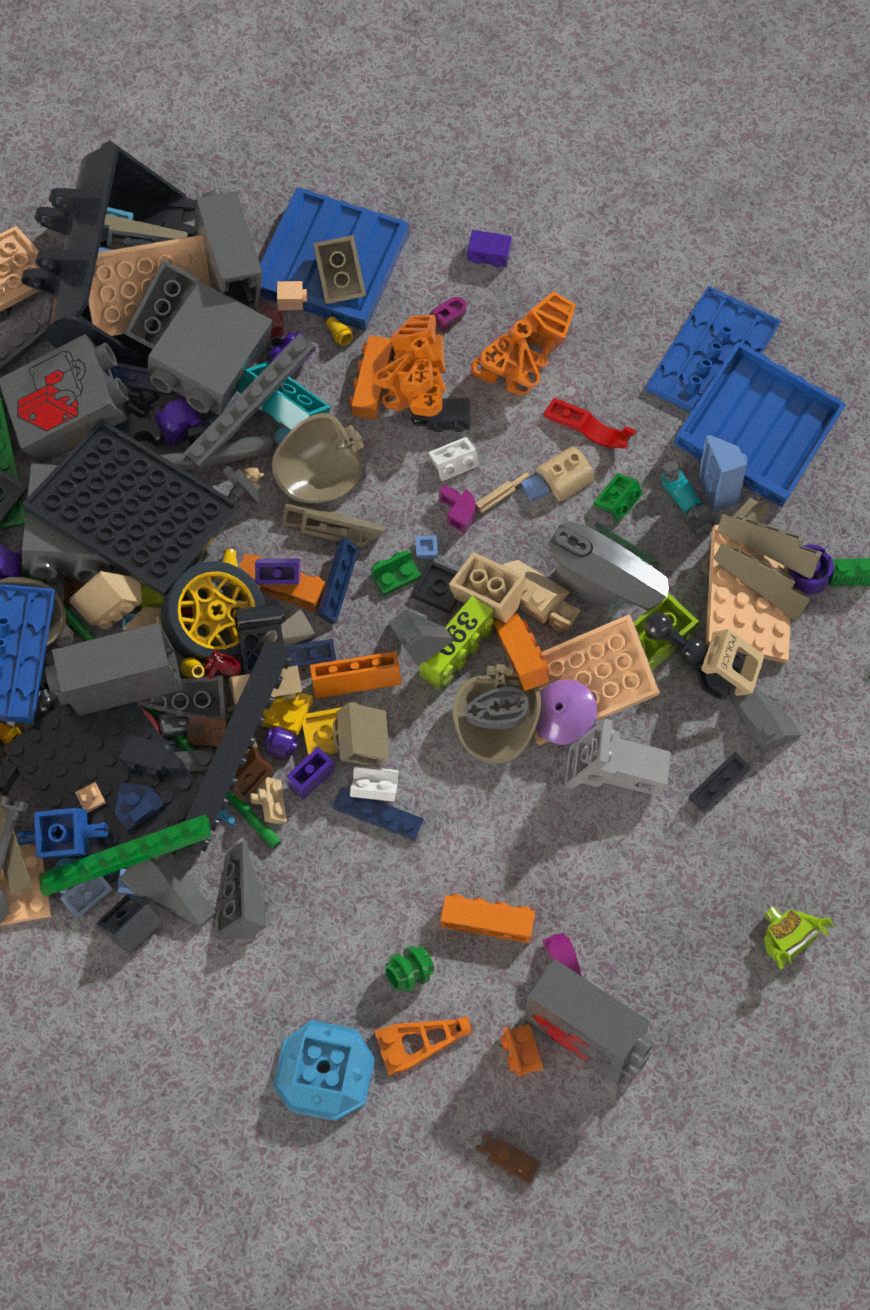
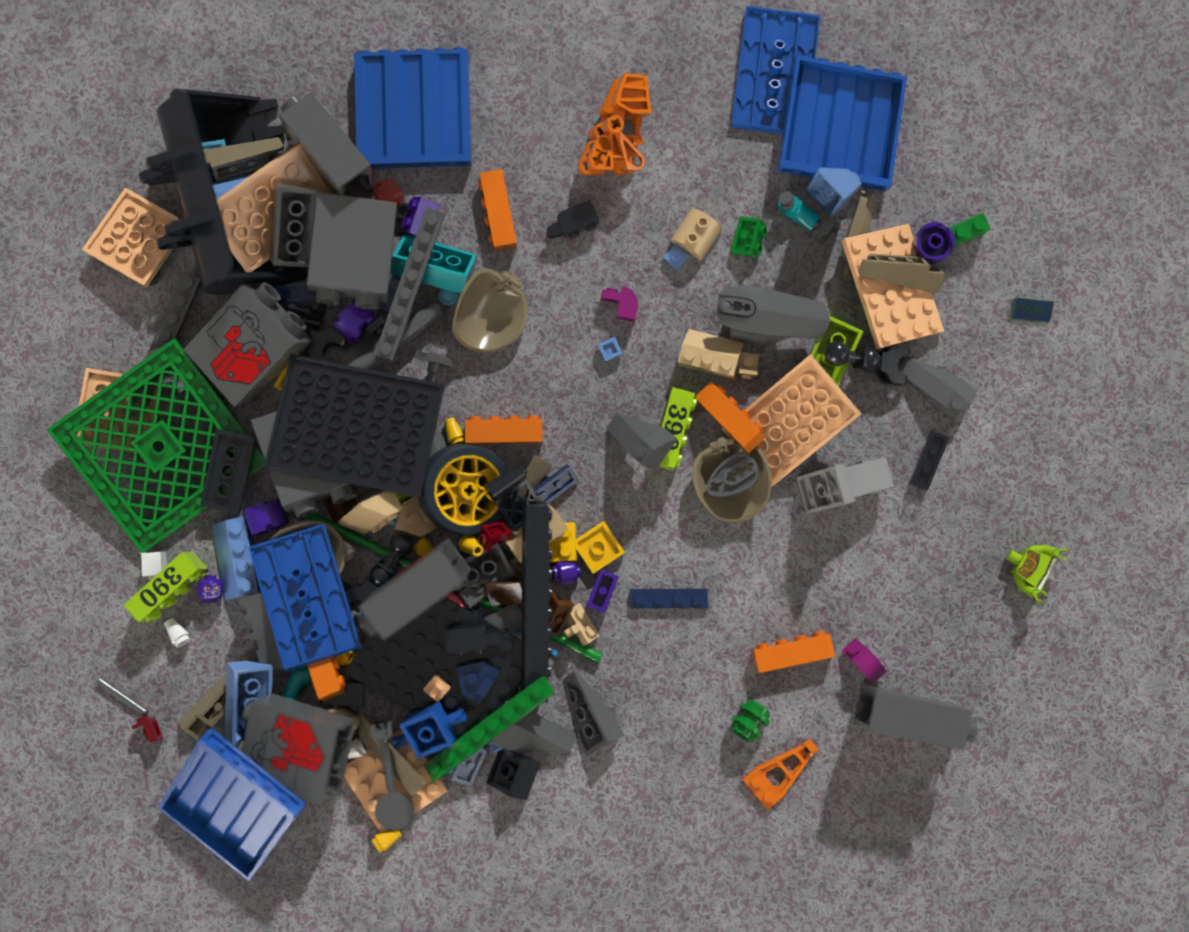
camera: 25 degrees left, 20 degrees up
(253, 475) = (437, 344): tan plant -> none
(277, 571) = (501, 430): dark purple brick -> none
(291, 295) = (397, 164): light nougat brick -> none
(327, 1094) = (713, 808): dark azure piece -> none
(329, 524) = (522, 360): dark tan wedge -> none
(338, 581) = (550, 410): dark blue plate -> none
(339, 269) = (428, 122): dark tan slope -> none
(339, 331) = (451, 177): yellow cone -> none
(356, 674) = (602, 489): orange brick -> none
(361, 734) = (630, 543): dark tan brick -> none
(374, 783) = (657, 577): white bracket -> none
(395, 572) = (594, 383): green bracket -> none
(417, 368) = (530, 170): orange piece -> none
(434, 587) = (635, 379): black tile -> none
(454, 307) = (540, 114): magenta plate -> none
(454, 458) = (598, 257): white bracket -> none
(489, 248) = (545, 45): dark purple brick -> none
(491, 584) = (680, 370): tan slope -> none
(499, 494) = (649, 275): tan axle -> none
(510, 1159) = (888, 835): reddish brown plate -> none
(522, 1050) = (862, 746): orange bracket -> none
(574, 719) = (795, 446): medium lavender dish -> none
(588, 425) = (694, 180): red piece -> none
(629, 546) = (776, 284): clear green piece -> none
(721, 657) = (898, 358): tan window -> none
(772, 542) = (899, 236): dark tan wedge -> none

